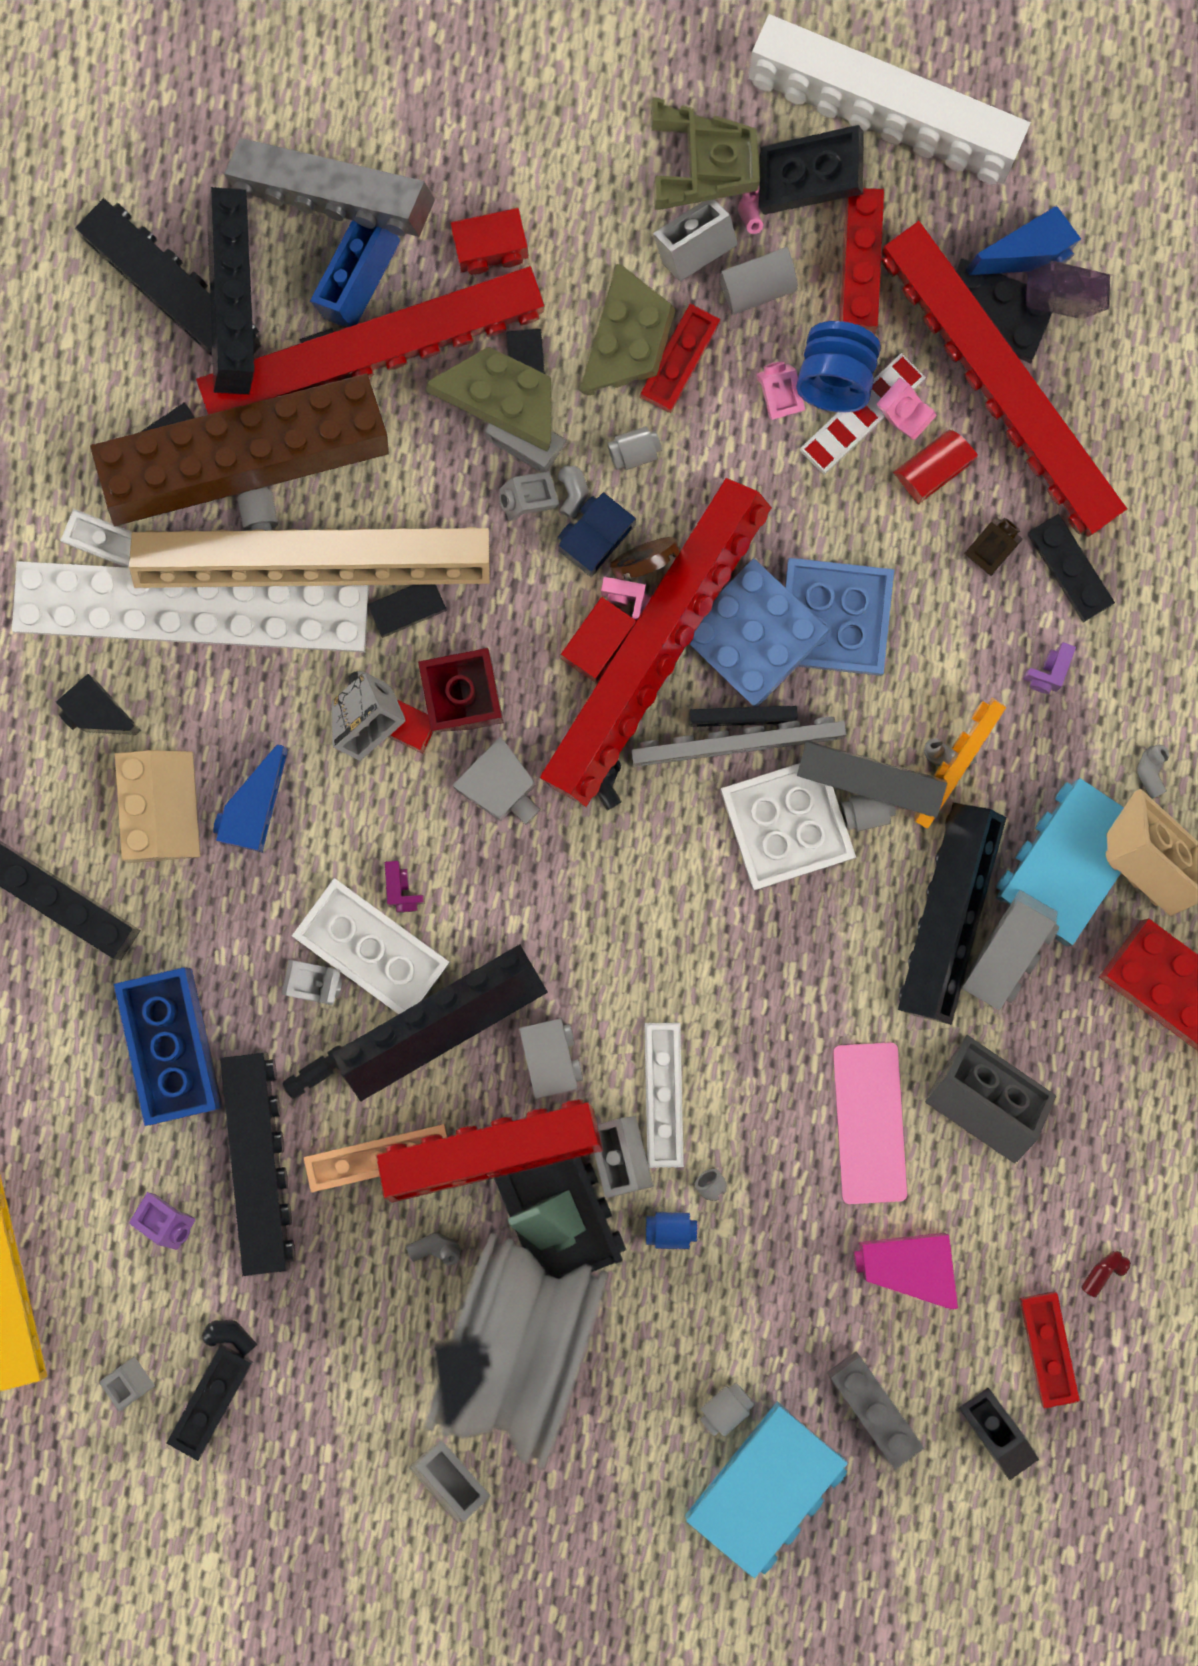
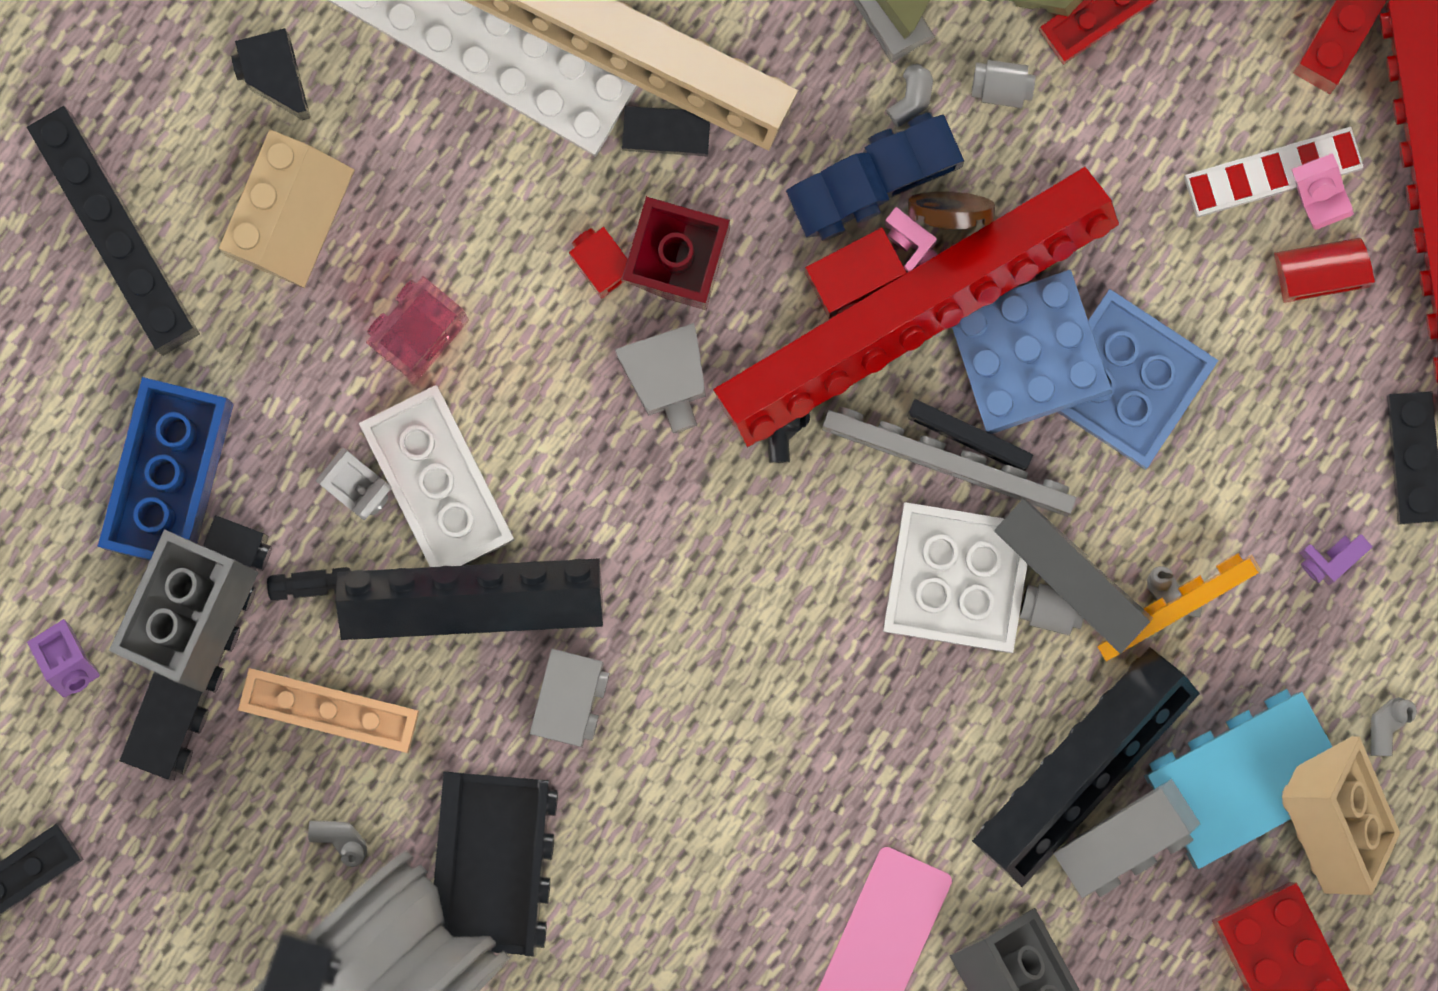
camera: 30 degrees right, 0 degrees up
(228, 1332) = (73, 814): black arm -> none
(233, 1141) = (183, 611): none -> dark grey slope
(251, 807) = (384, 264): blue slope -> none
(298, 845) = (416, 329): none -> clear pink brick
(364, 715) = (558, 225): light grey torso -> none
(397, 881) = (501, 423): magenta bracket -> none
(489, 1151) = (451, 764): red brick -> none
(528, 495) = (860, 75): light grey bracket -> none
(550, 1222) = (476, 874): sand green slope -> none
(557, 590) = (837, 196): none -> dark blue brick
(623, 1158) = (589, 843): light grey brick -> none
(663, 1095) = (671, 802): white tile -> none
(670, 1230) = (602, 951): blue brick -> none
(711, 1191) = (672, 931): light grey hinge -> none
(780, 390) = (1197, 100): bright pink bracket -> none
(838, 366) = (1271, 107): blue wheel -> none
(994, 545) = (1343, 389): dark brown bracket -> none

